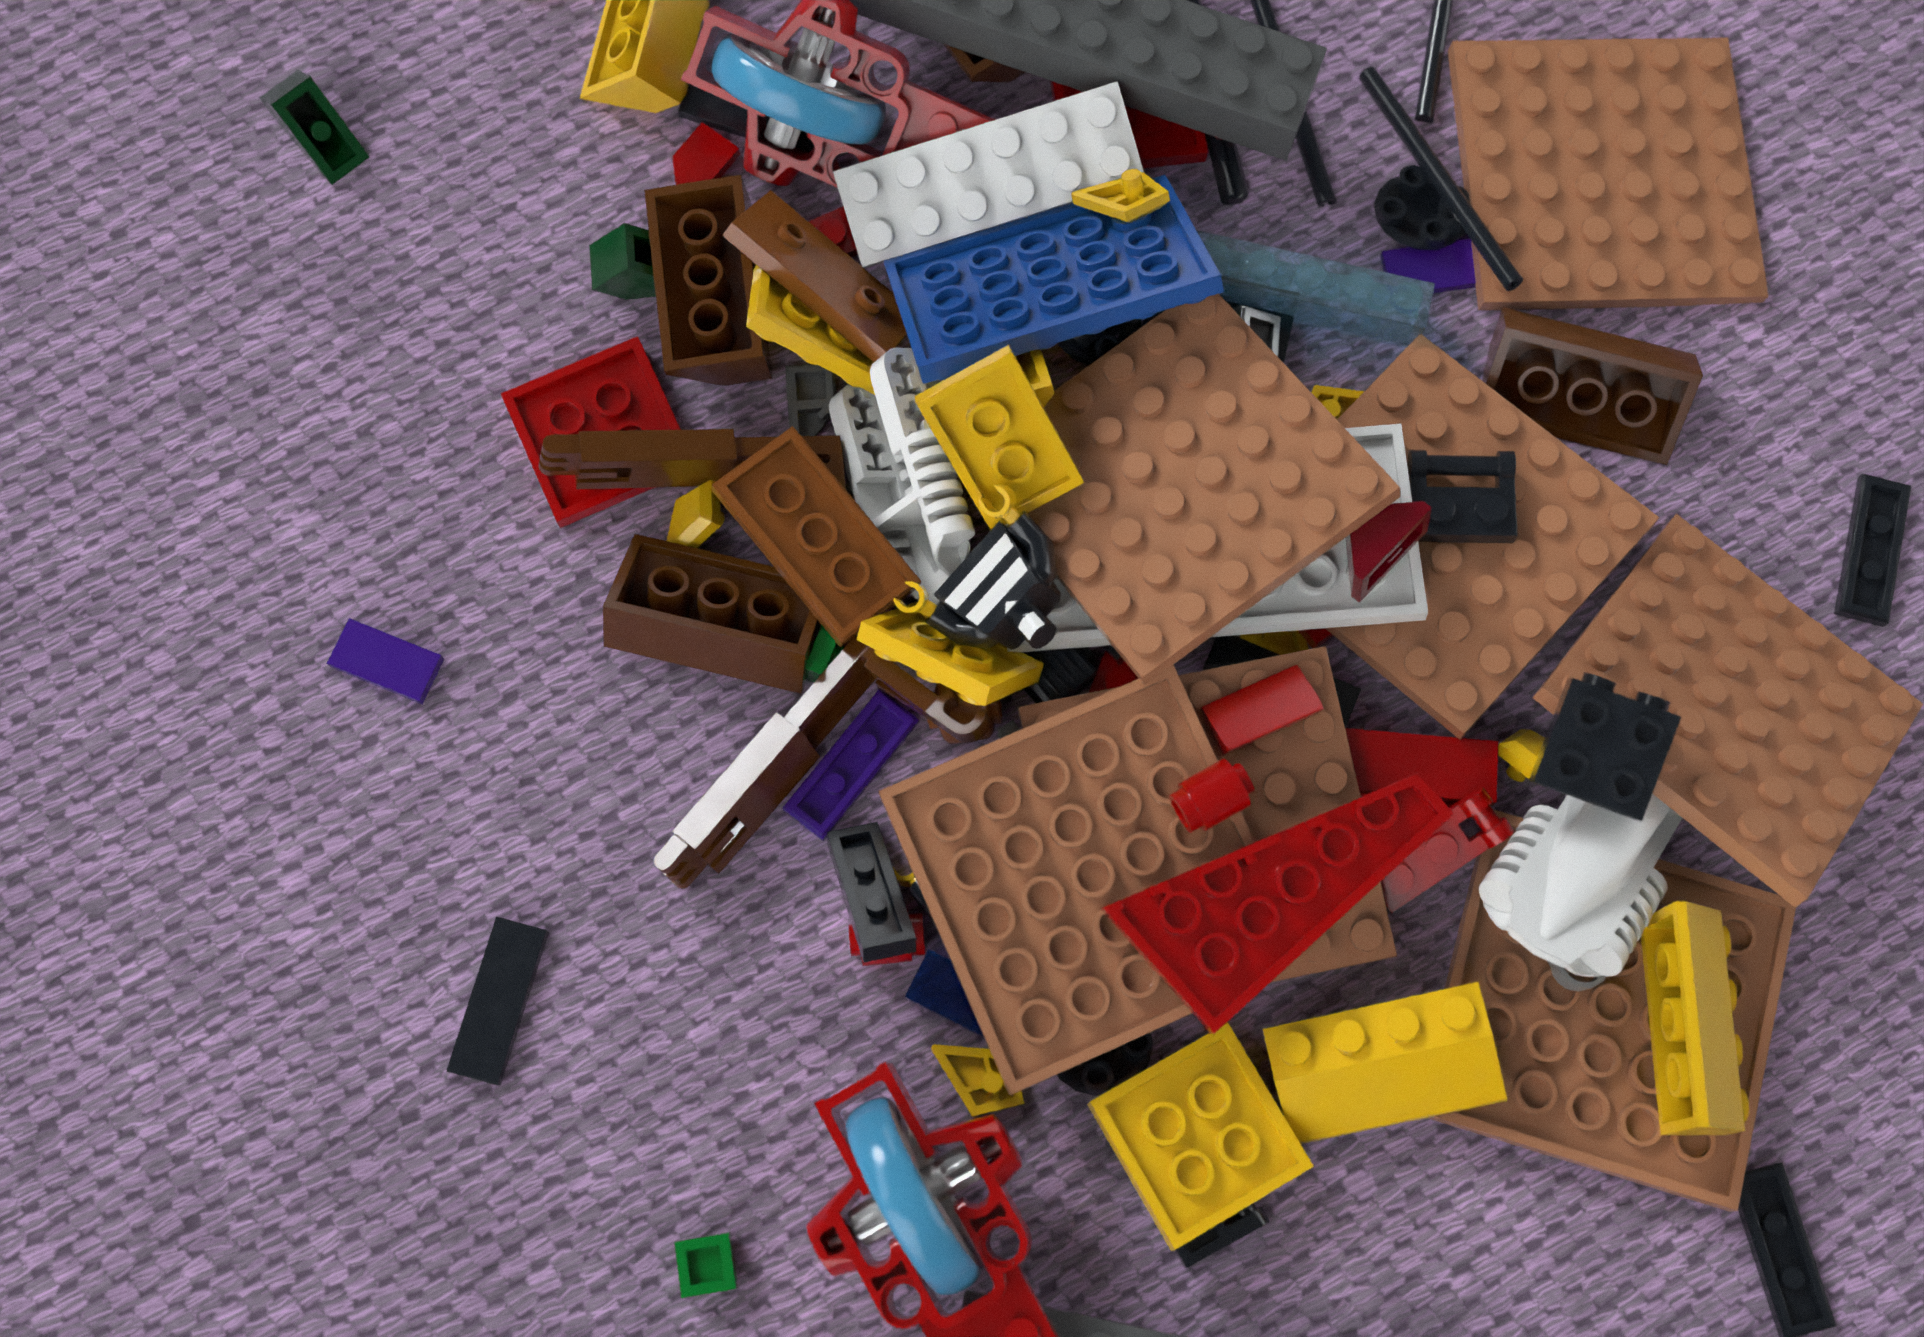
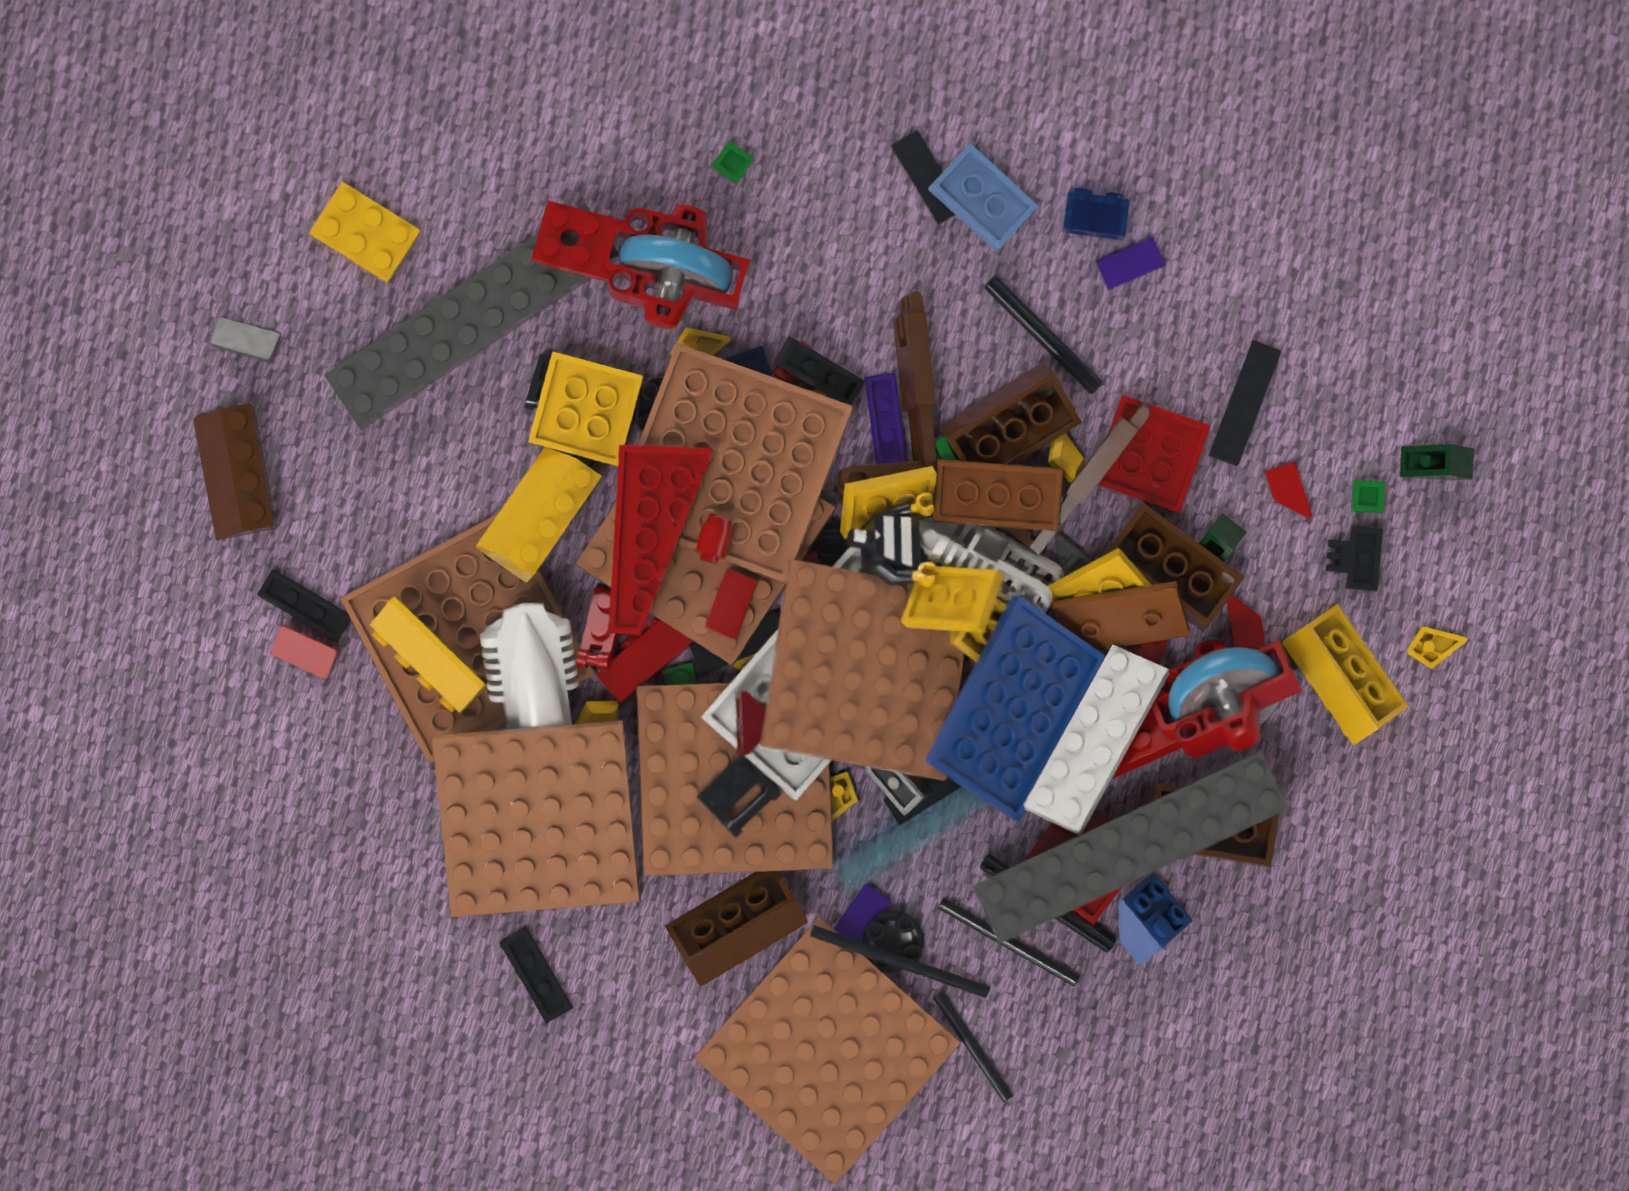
camera: 135 degrees right, 10 degrees up
(358, 750) = (1096, 214): none -> clear blue brick
(424, 163) = (1367, 496): none -> green plate
(437, 387) = (1244, 403): none -> black tile
(460, 905) = (983, 197): none -> medium blue plate
(496, 255) = (1288, 489): none -> red tile
(505, 113) = (1358, 558): none -> black hinge
(569, 682) = (1043, 335): none -> black axle
(1123, 198) = (1021, 781): yellow piece -> none
(1387, 708) = (680, 675): none -> green plate
(1606, 746) = (573, 716): black brick -> none
(1831, 1193) = (304, 652): none -> slope

